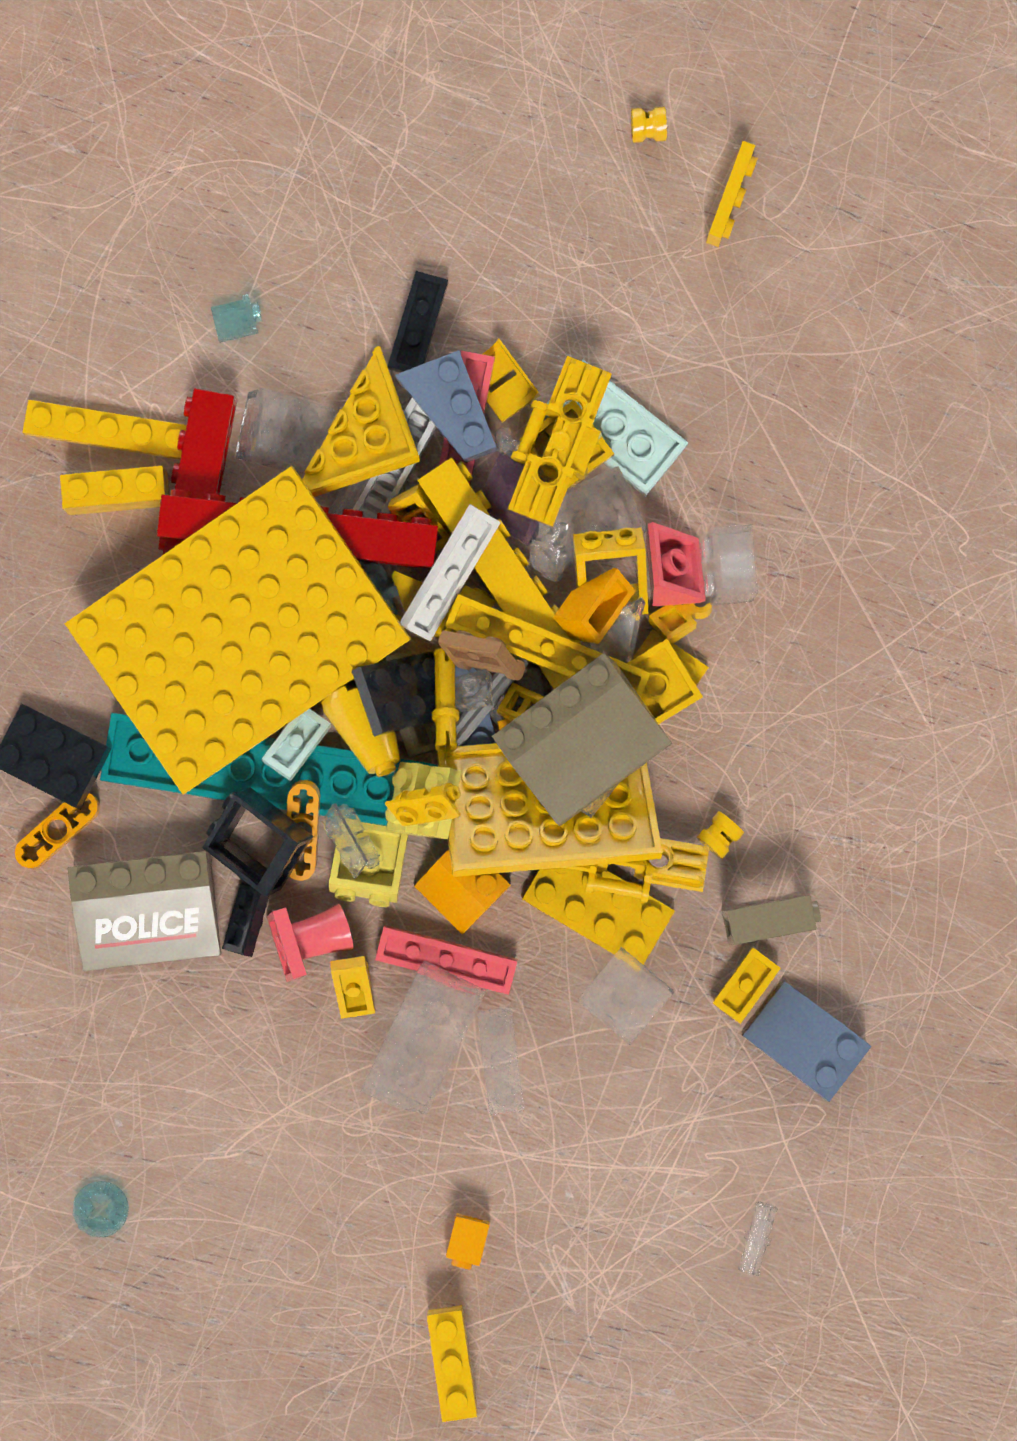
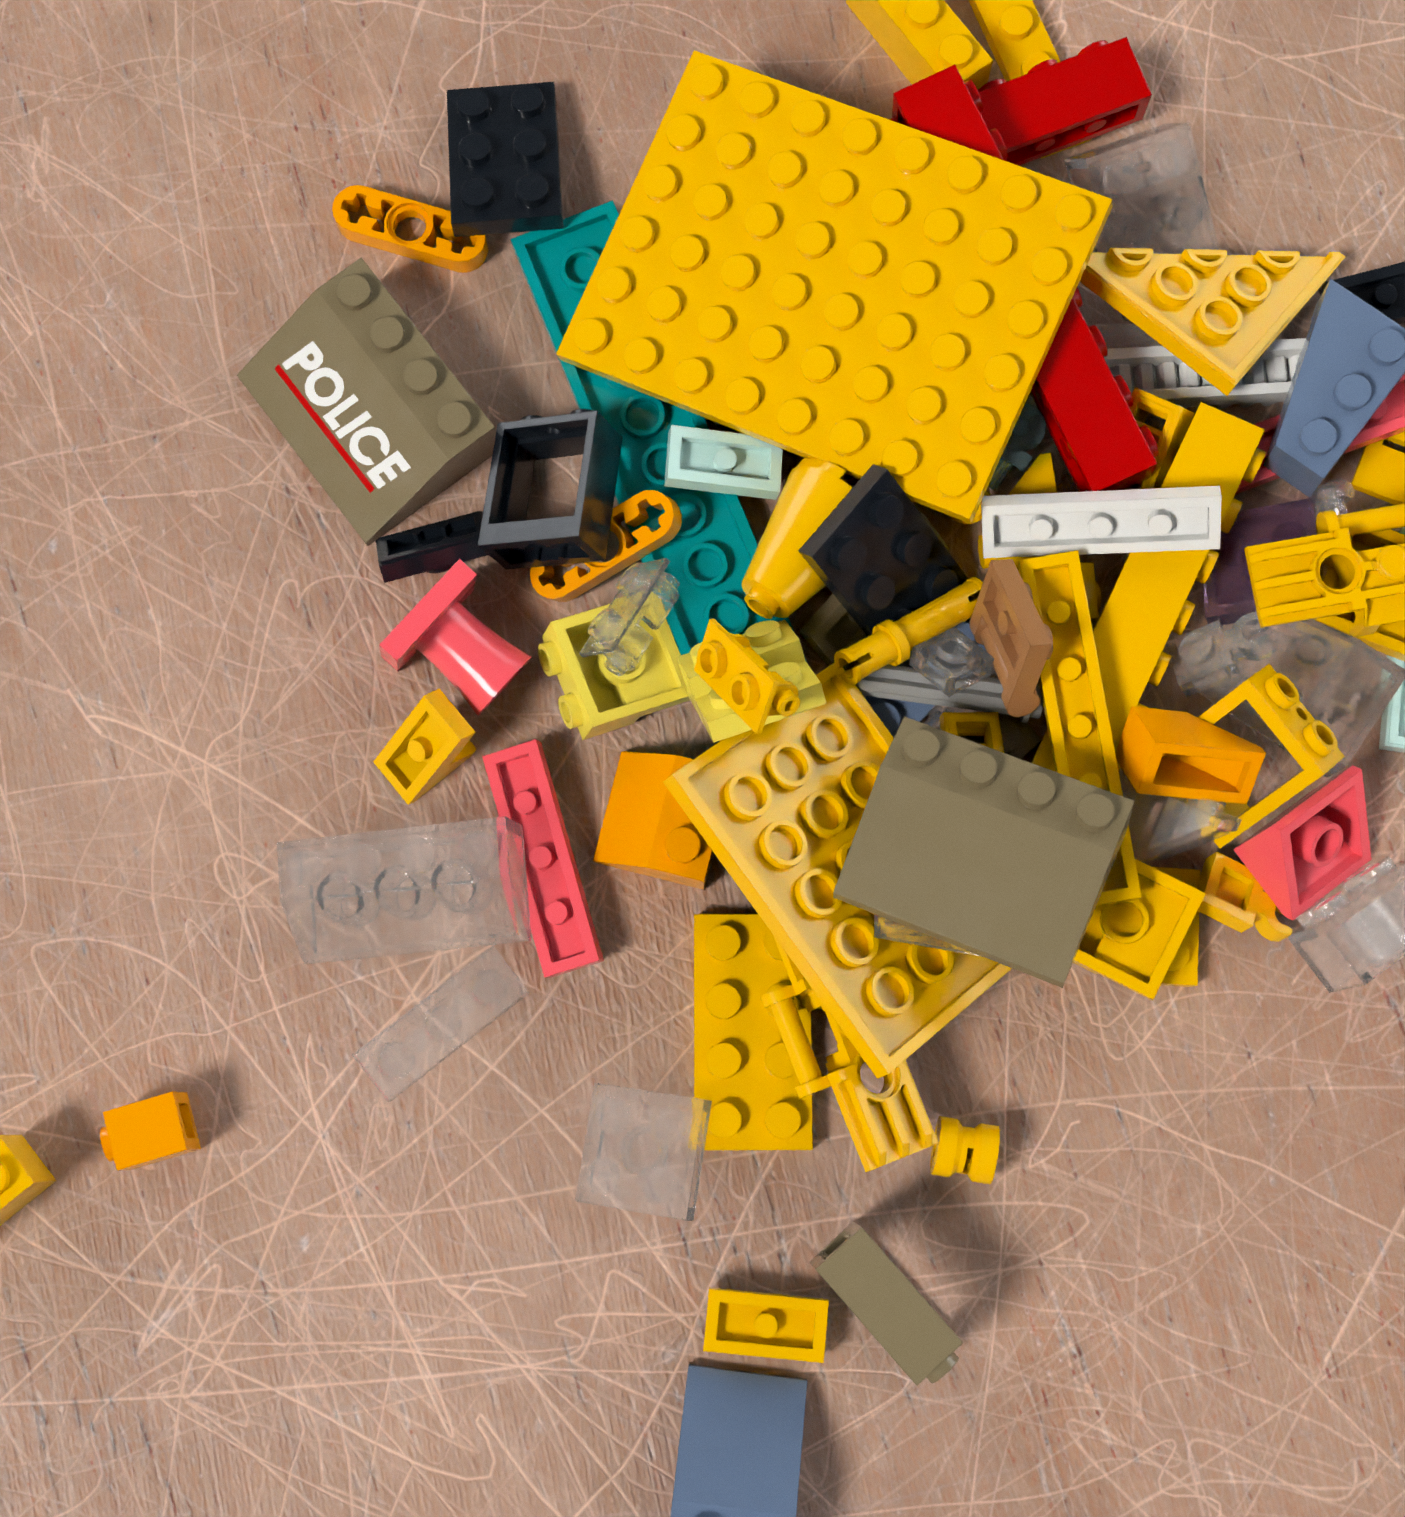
camera: 60 degrees right, 5 degrees down
(236, 319) = (1252, 55): clear light blue bracket -> none

